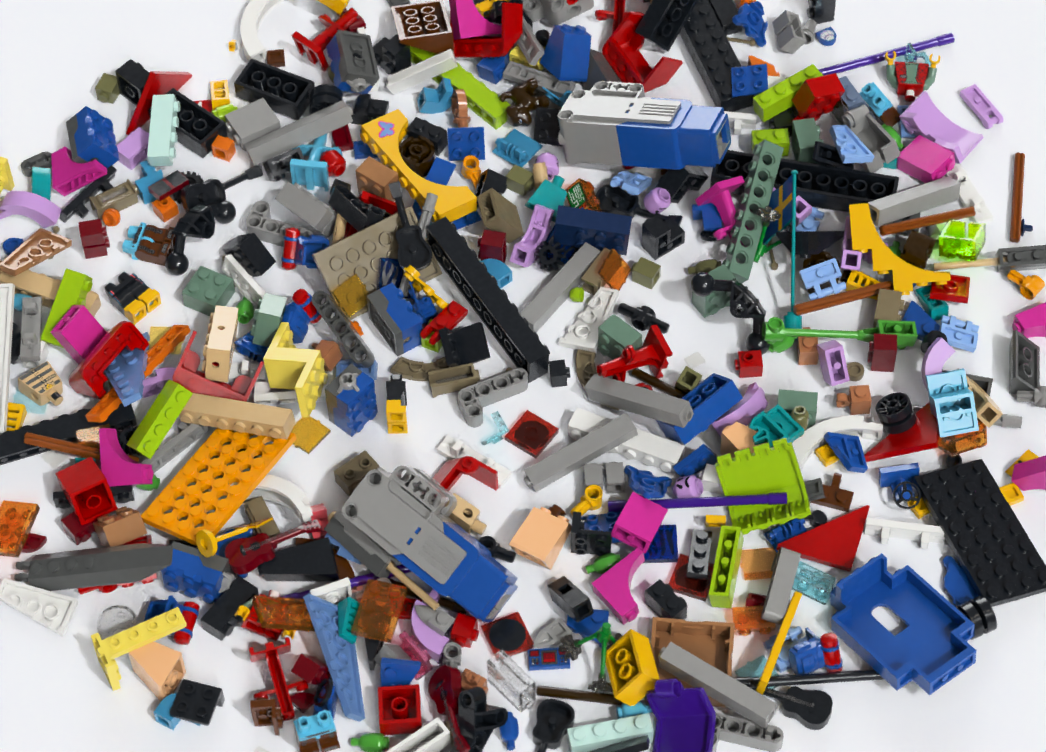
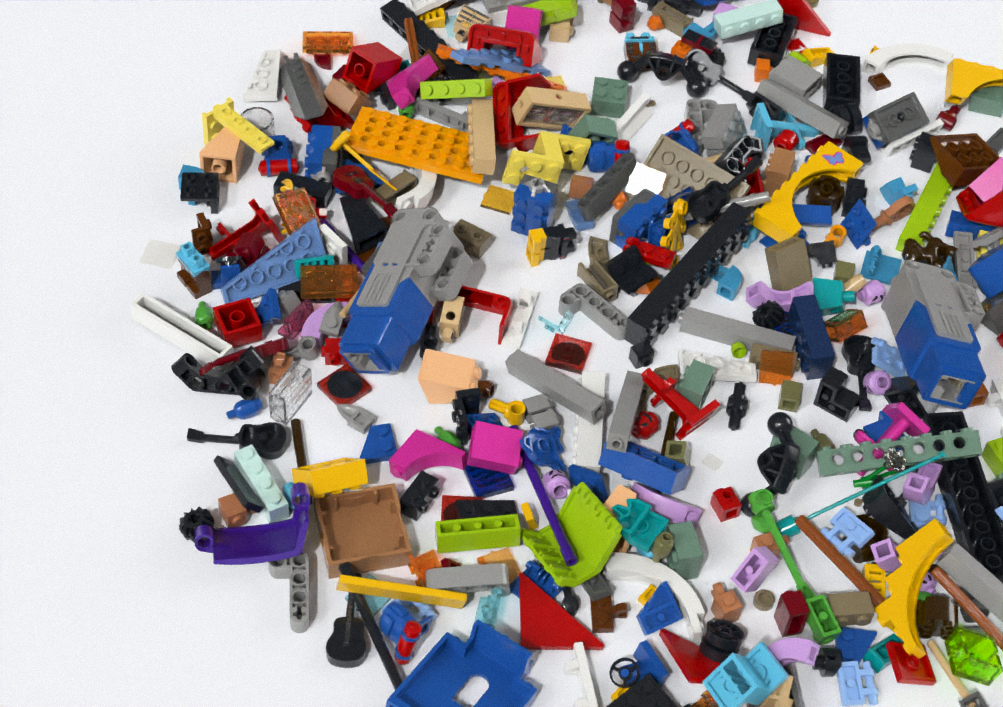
camera: 65 degrees right, 5 degrees down
(132, 297) = (581, 53): hips -> none
(250, 252) = (657, 111): black brick -> none
(315, 47) = (929, 104): red piece -> none
(421, 71) = (918, 173): white panel -> none
(492, 245) = (751, 268): dark red piece -> none
(547, 659) = (331, 423): tile -> none
(570, 599) = (393, 417): black brick -> none
(572, 650) = (347, 437): plant -> none
(717, 684) = (331, 548): light grey brick -> none

